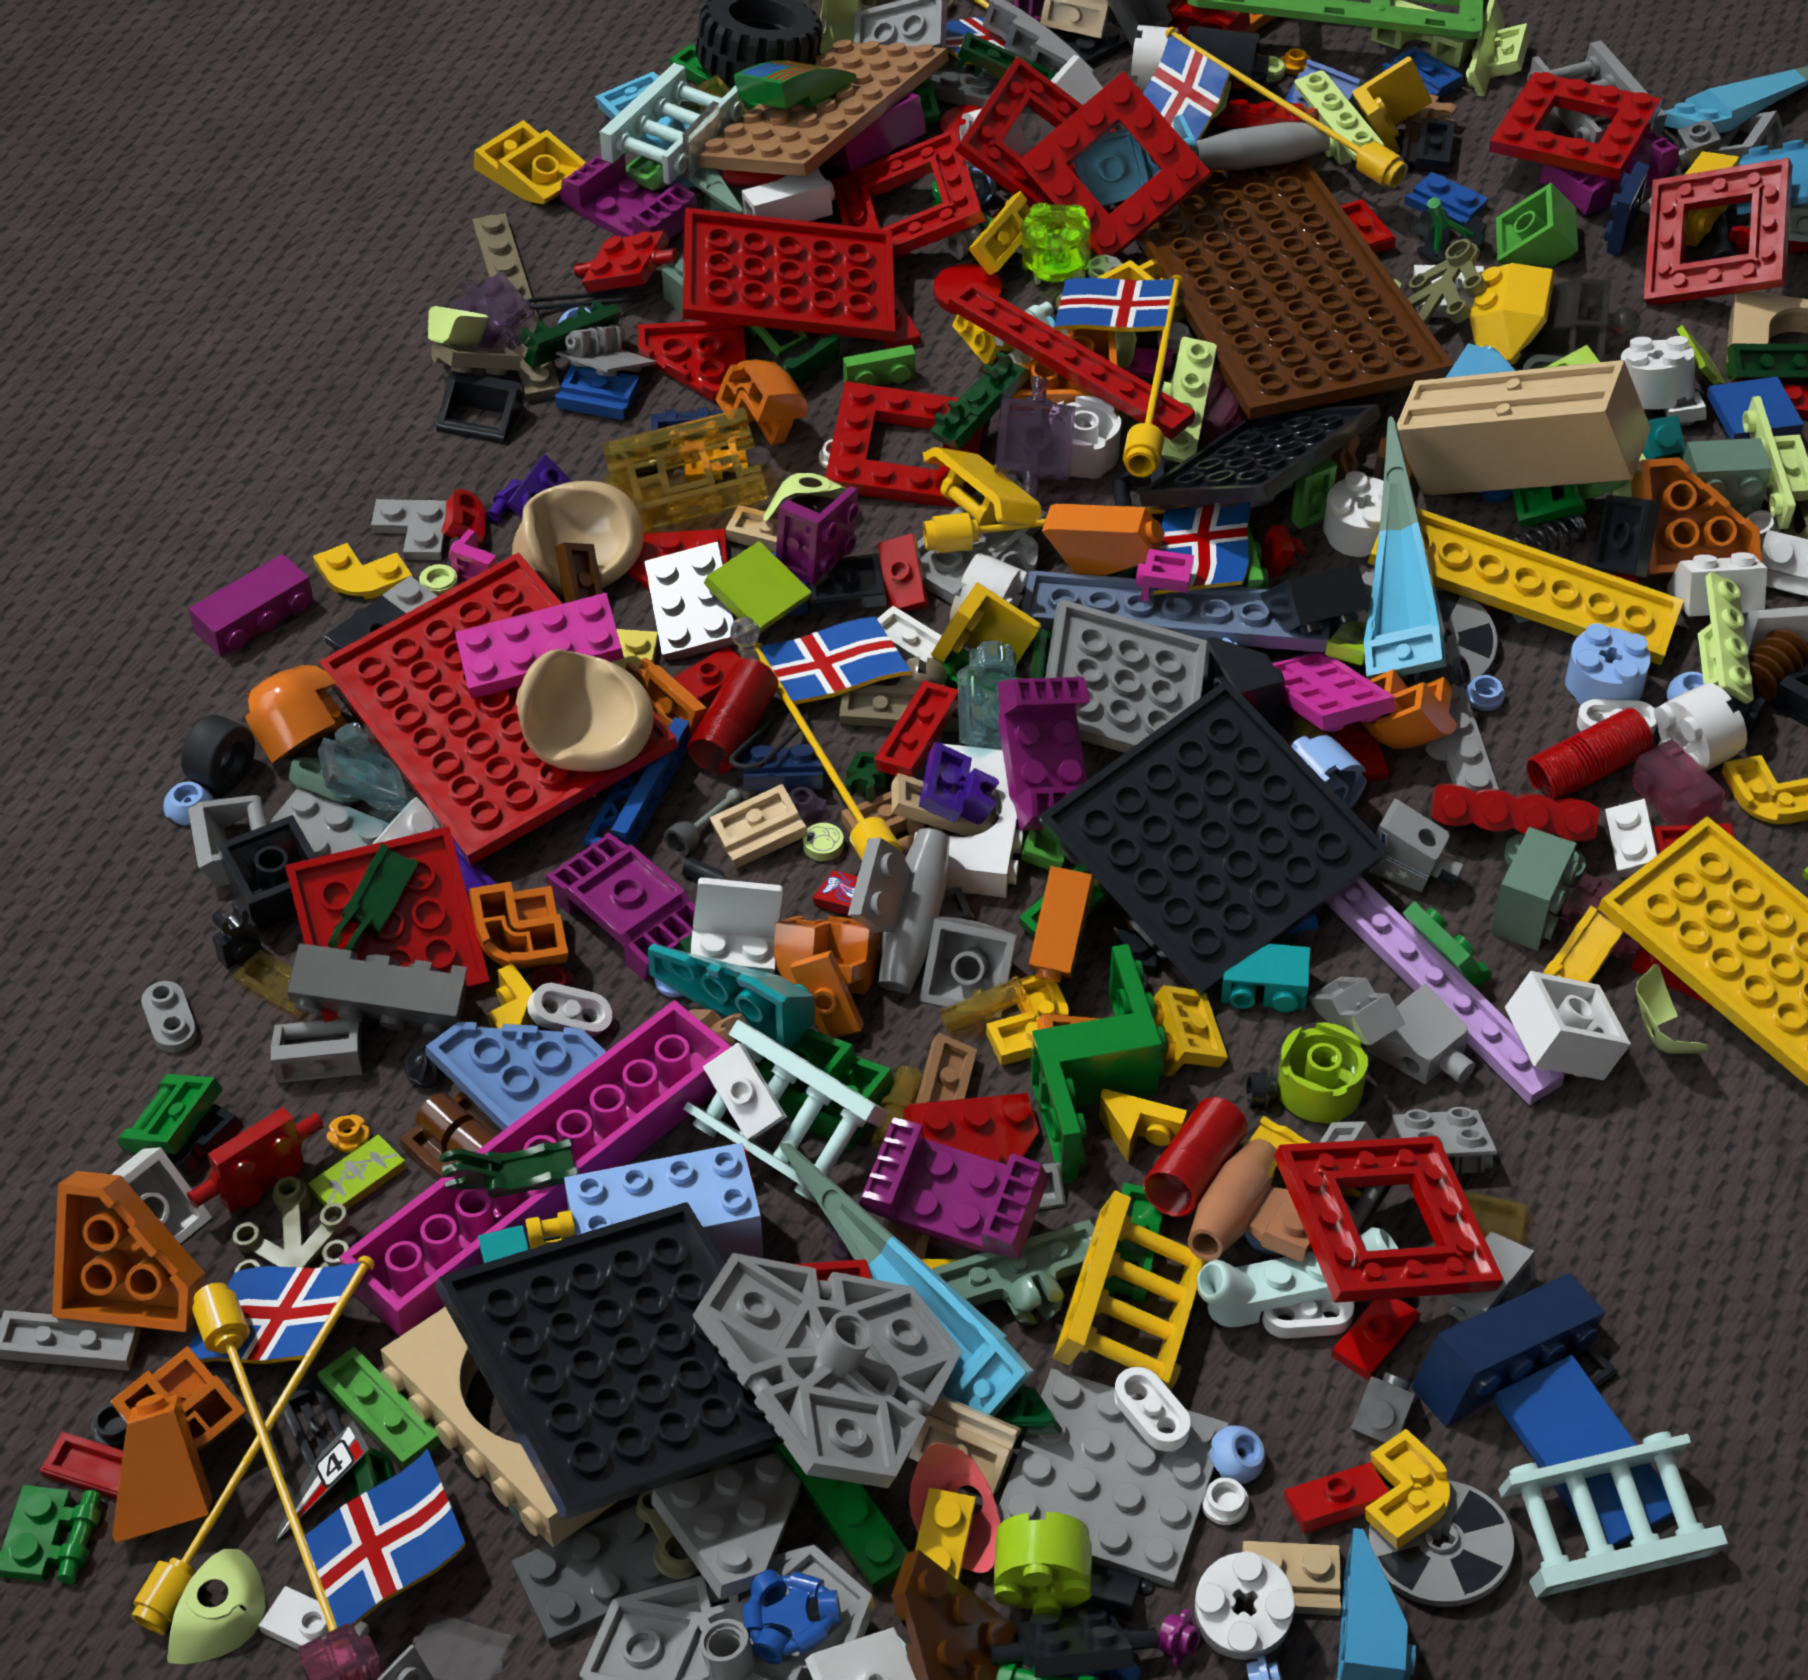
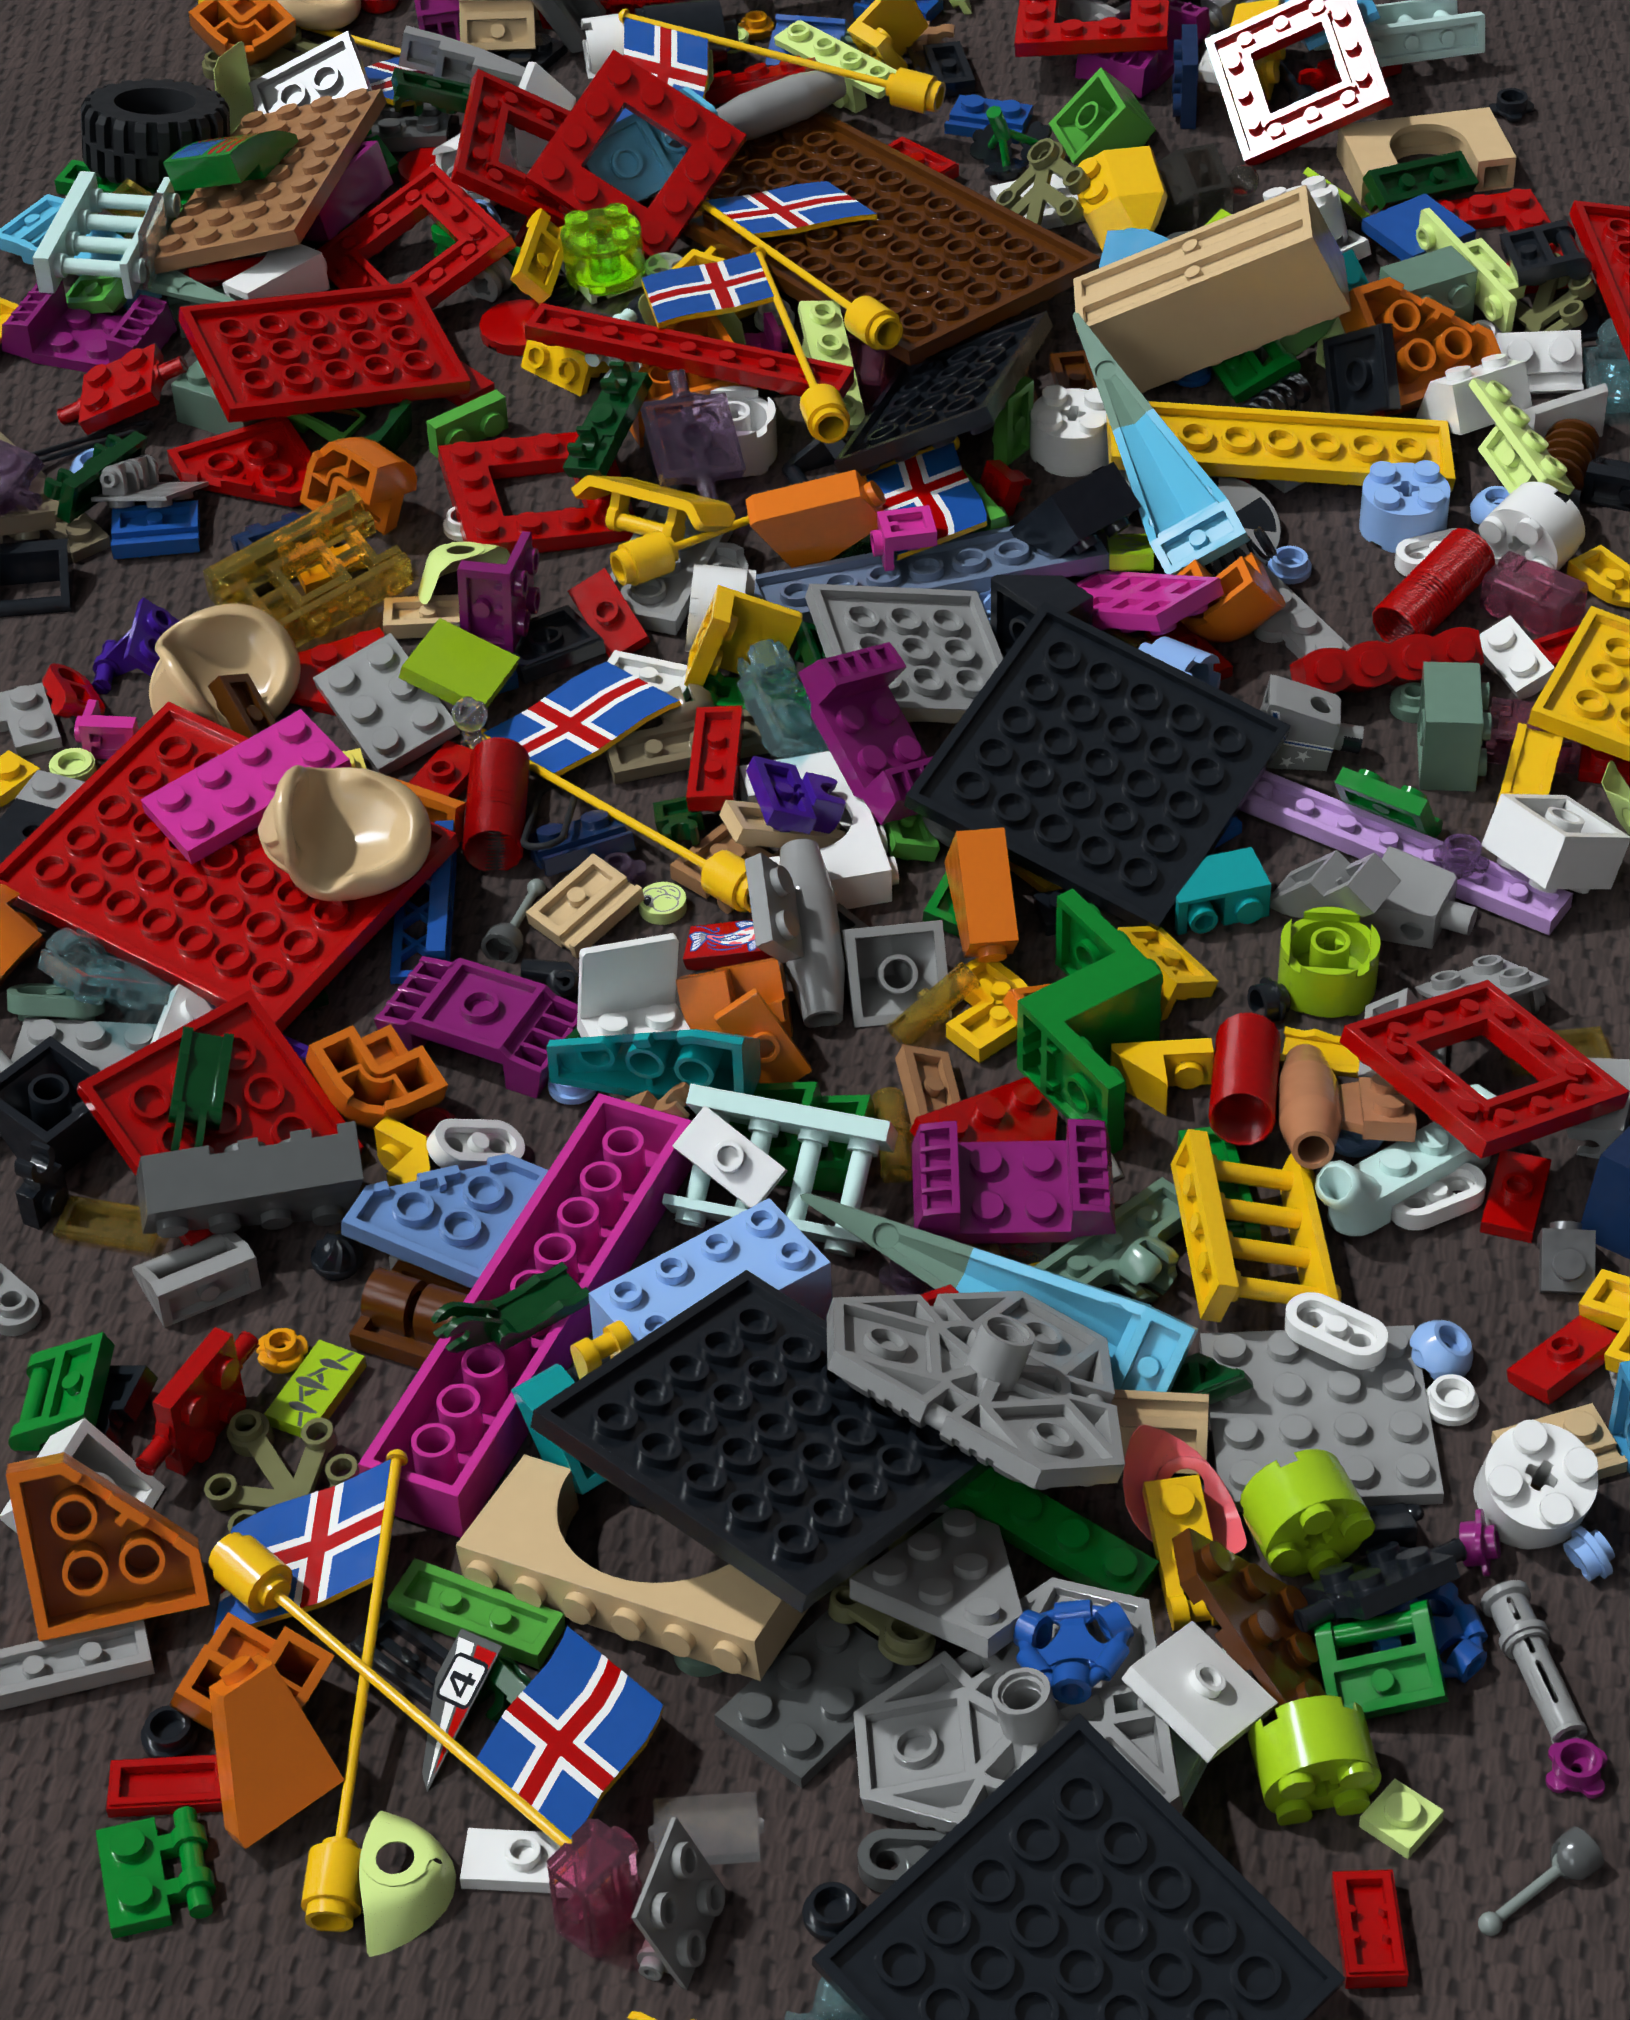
camera: 20 degrees left, 5 degrees down
(1223, 248) = (800, 210): none -> flag
(1485, 1004) = (1461, 855): none -> clear purple plate

